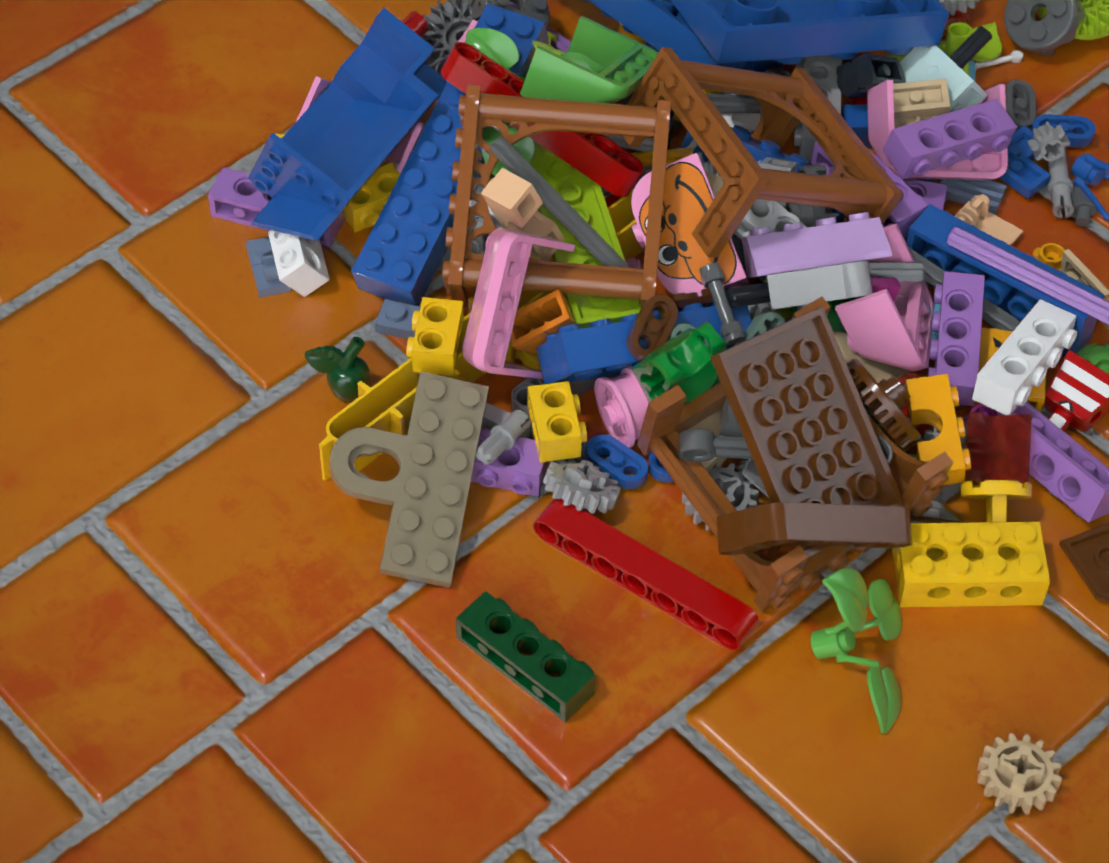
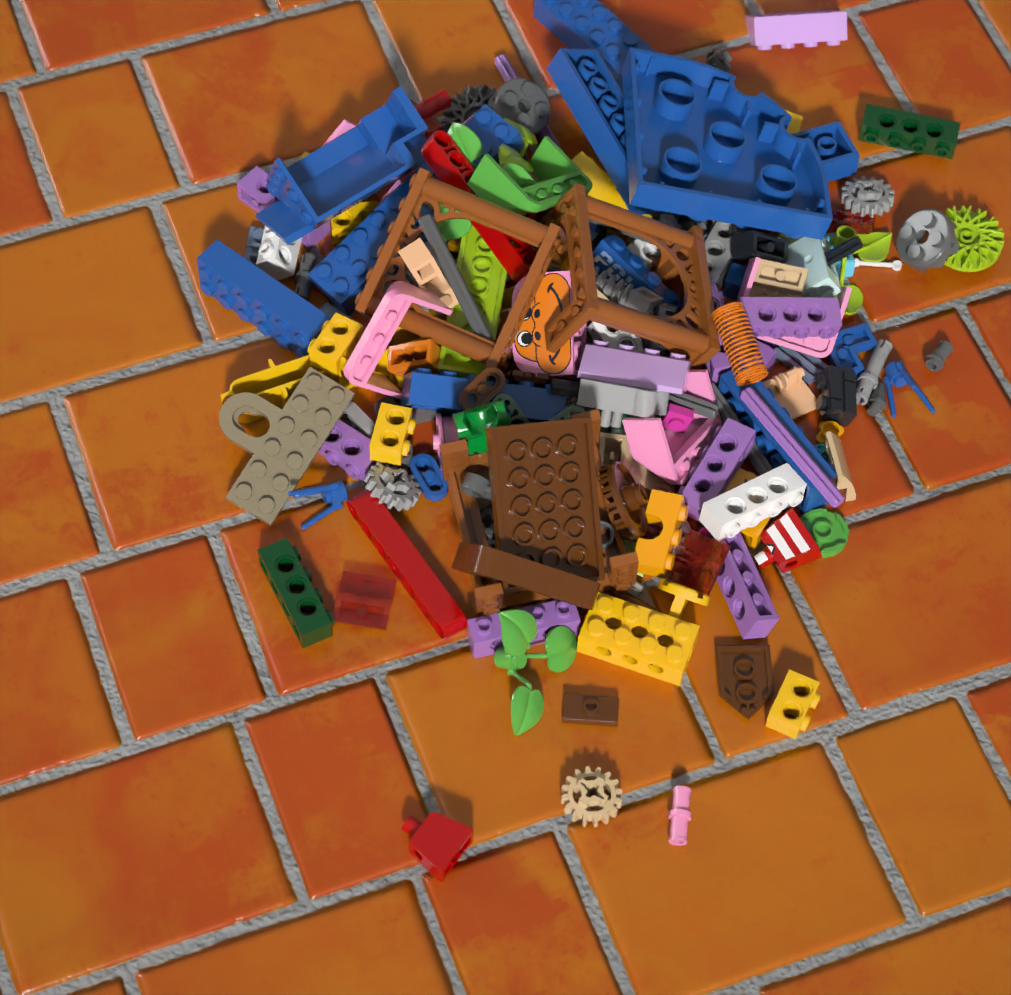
camera: 20 degrees right, 5 degrees up
(306, 316) = (259, 298): none -> blue brick
(342, 368) = (267, 344): dark green piece -> none
(343, 280) = (302, 279): none -> dark grey pin
(503, 437) = (350, 433): light grey axle -> none
(507, 521) = (331, 493): none -> blue plant
(615, 635) = (365, 600): none -> clear red slope
(712, 278) = (543, 409): dark grey bar -> none
(812, 607) = (486, 634): none -> medium lavender brick
(947, 213) = (744, 376): none -> orange piece
(957, 670) = (590, 710): none -> reddish brown plate
(1020, 103) = (872, 308): dark grey plate -> none
(1038, 213) = (837, 395): none -> black brick
(1048, 142) = (872, 343): light grey gear -> none
(1077, 128) = (897, 335): blue plate -> none

